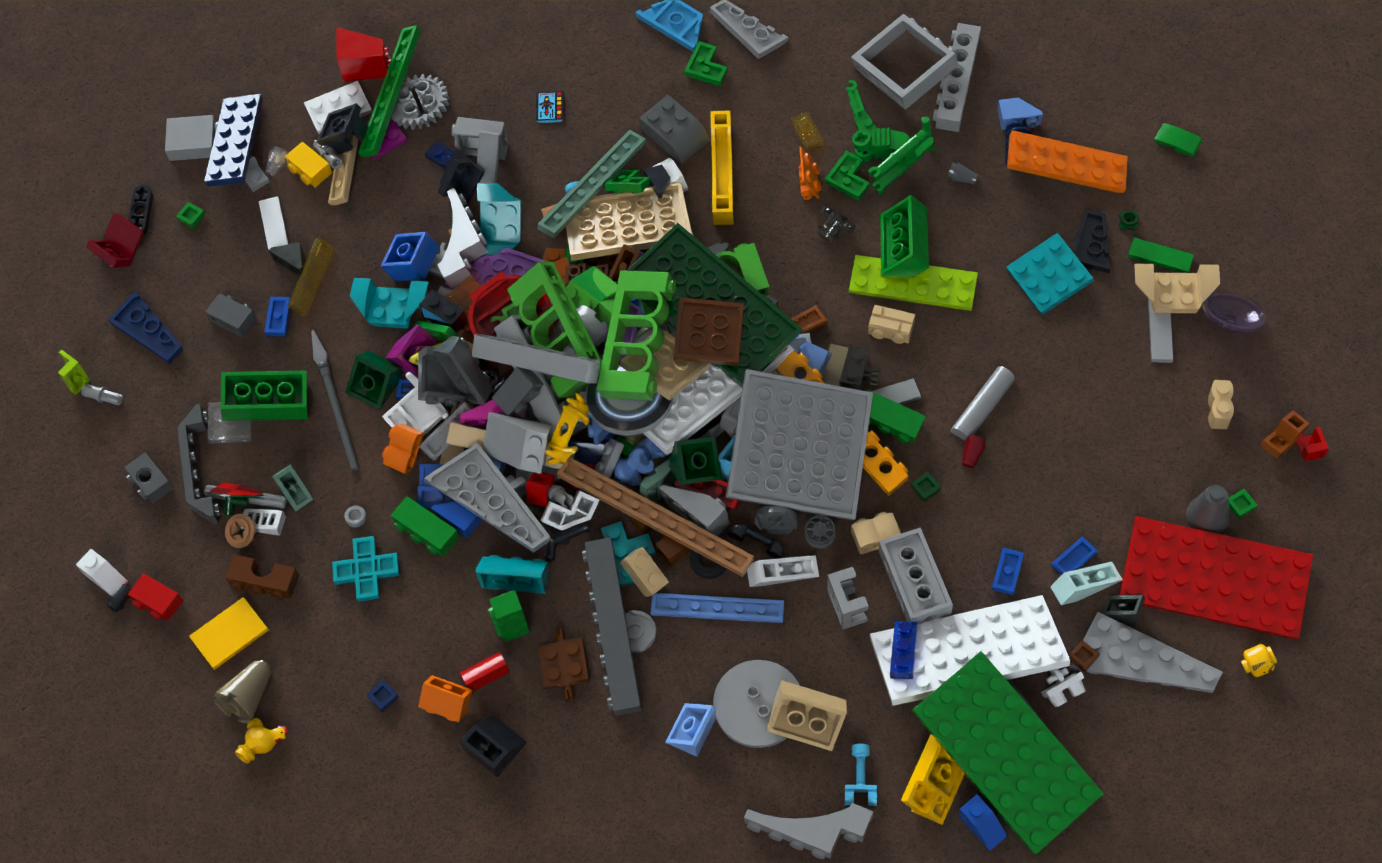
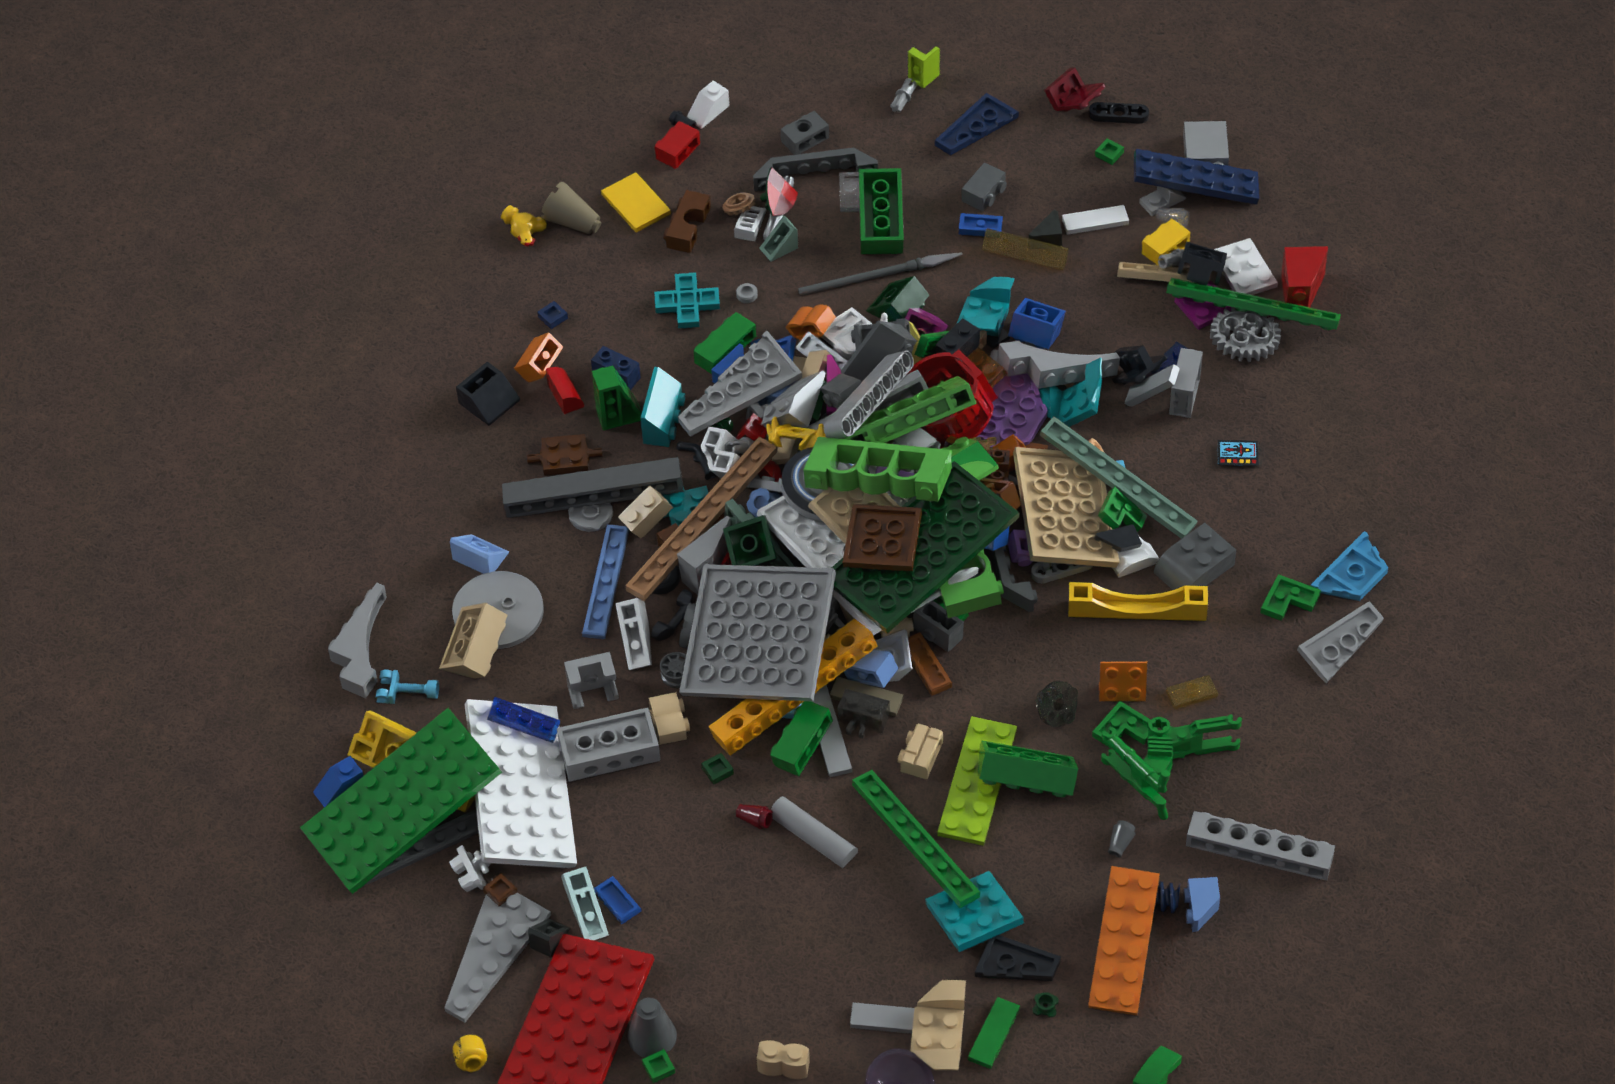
camera: 90 degrees right, 10 degrees down
(458, 623) = (626, 367): none -> dark blue brick
(920, 86) = (1228, 775): light grey window -> none
(986, 319) = (916, 838): none -> green plate
(1007, 571) = (608, 834): blue plate -> none

